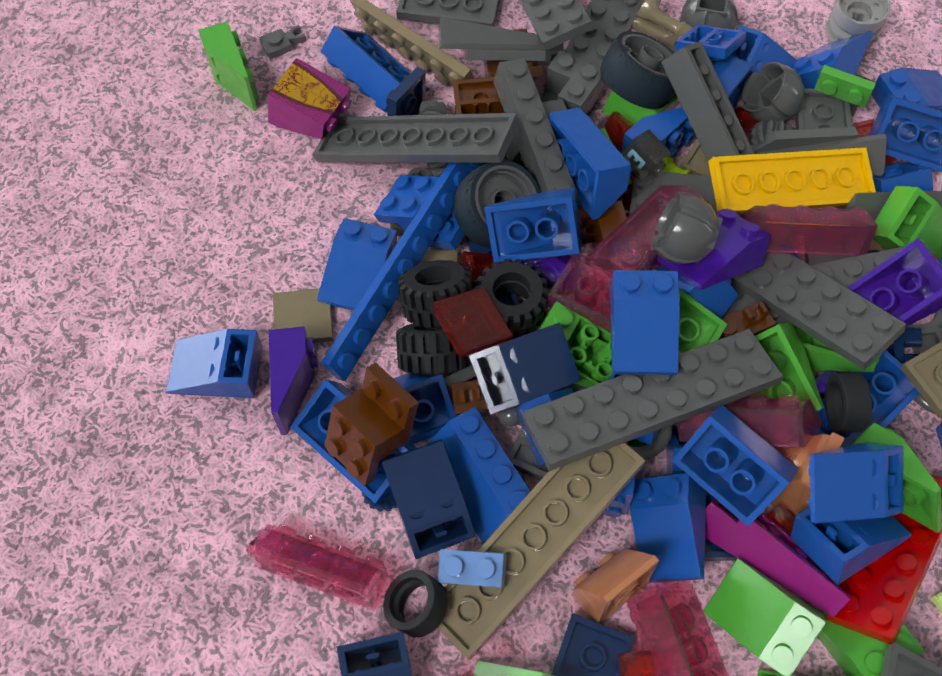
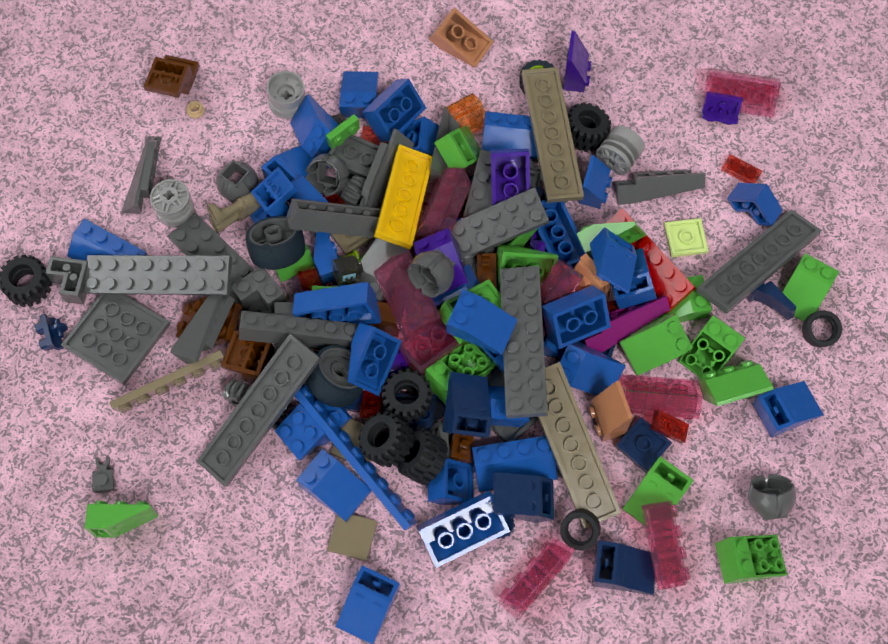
camera: 70 degrees left, 5 degrees up
(291, 372) = (397, 553): dark purple slope -> none
(307, 101) = (181, 472): slope -> none
(364, 63) = (167, 418): blue slope -> none
(370, 424) = (470, 510): reddish brown bracket -> none
(408, 95) = (214, 402): dark blue plate -> none
(471, 322) = (424, 423): clear red tile -> none
(472, 568) = (575, 487): medium blue plate -> none
(847, 402) = (561, 240): black tyre -> none

